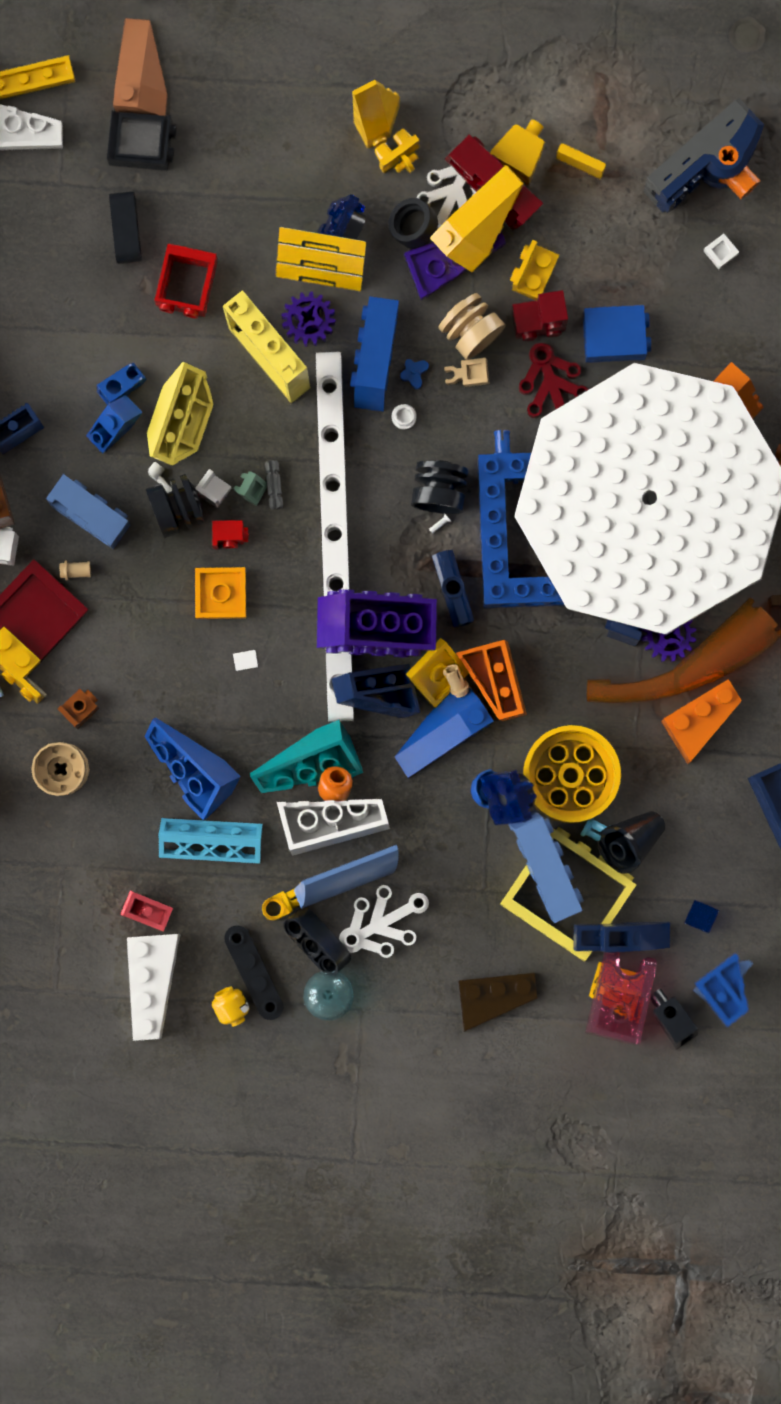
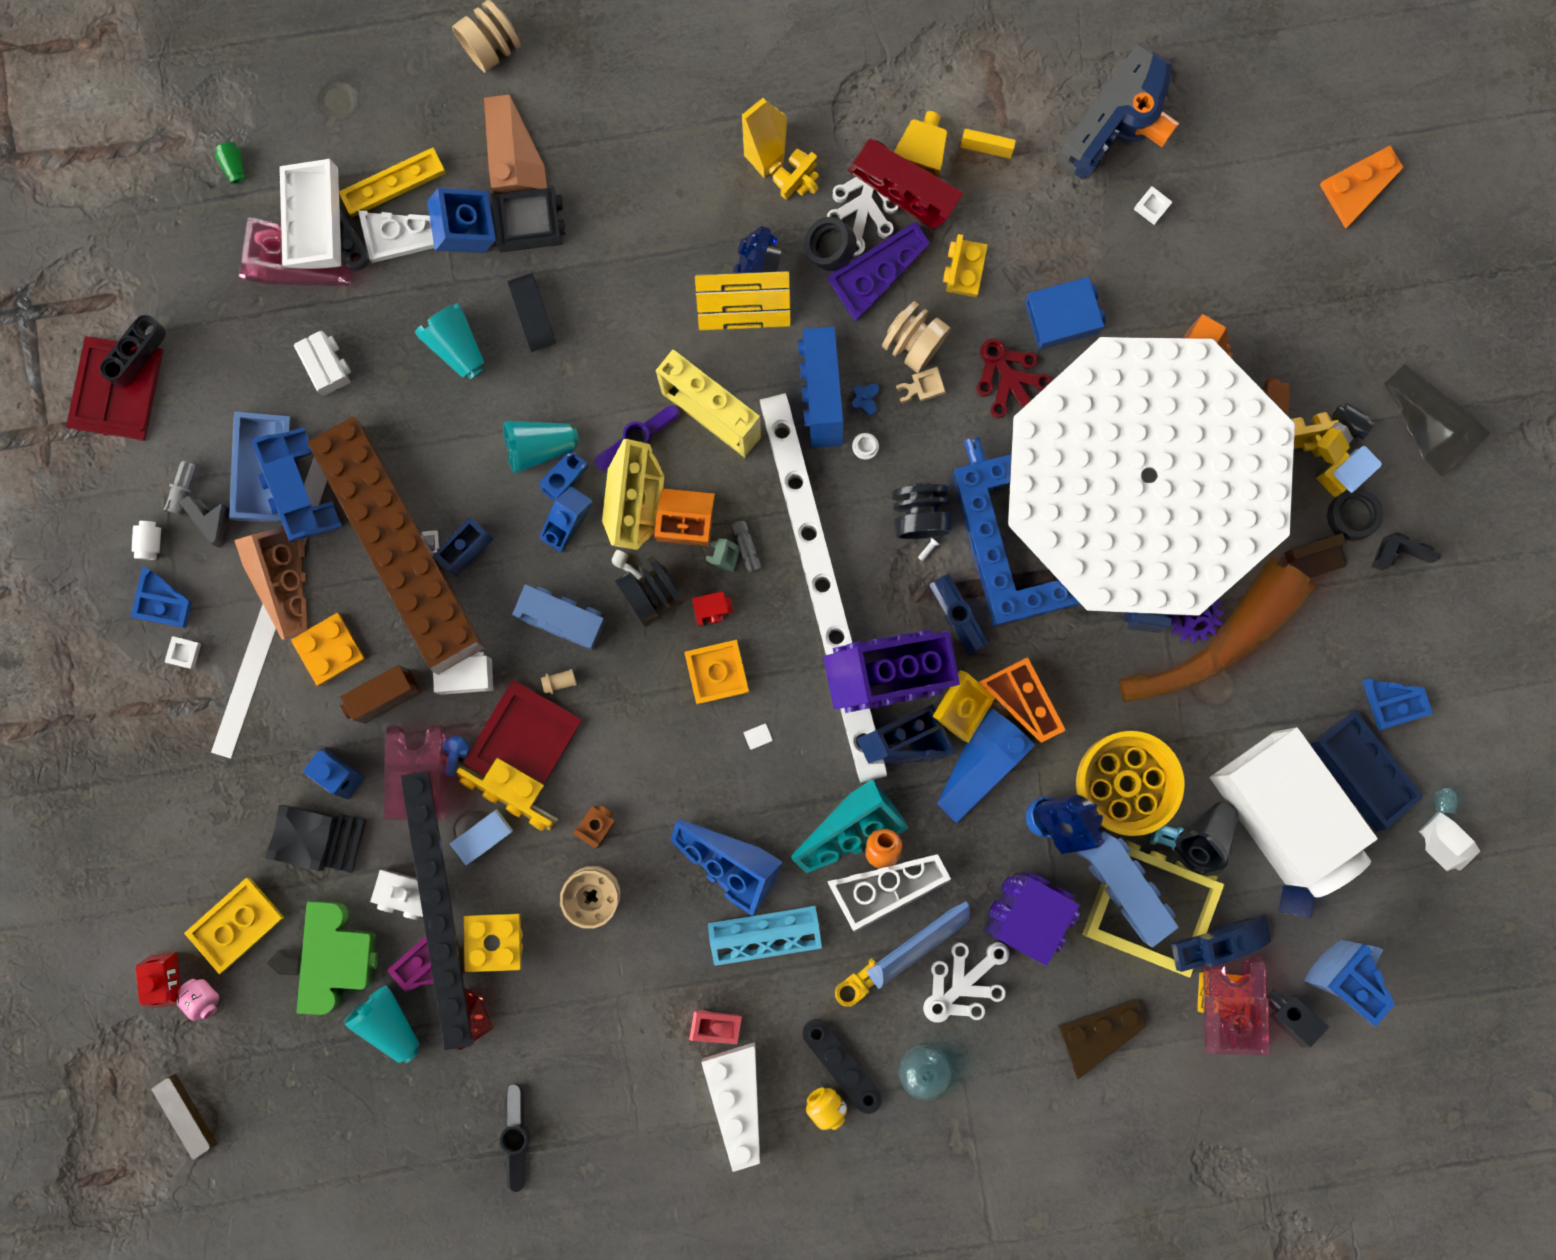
camera: 15 degrees left, 0 degrees up
(47, 239) = (453, 341): none -> teal cone
(79, 129) = (461, 220): none -> blue brick
(103, 348) = (536, 442): none -> teal cone
(193, 257) = (607, 327): red window -> none
(211, 356) = (650, 427): none -> dark purple piece
(212, 489) = (684, 564): white panel -> none
(222, 446) = (684, 517): none -> orange slope
(316, 325) = (733, 363): dark purple gear -> none
(317, 941) = (902, 1019): black beam -> none
(451, 870) = (1032, 916): none -> dark purple brick
(458, 685) = (988, 715): tan pin -> none
(473, 228) = (897, 233): yellow wedge -> none
(540, 317) = (987, 311): dark red brick -> none
(700, 719) = (1248, 694): orange wedge -> none
(715, 833) = (1296, 813): none -> white container

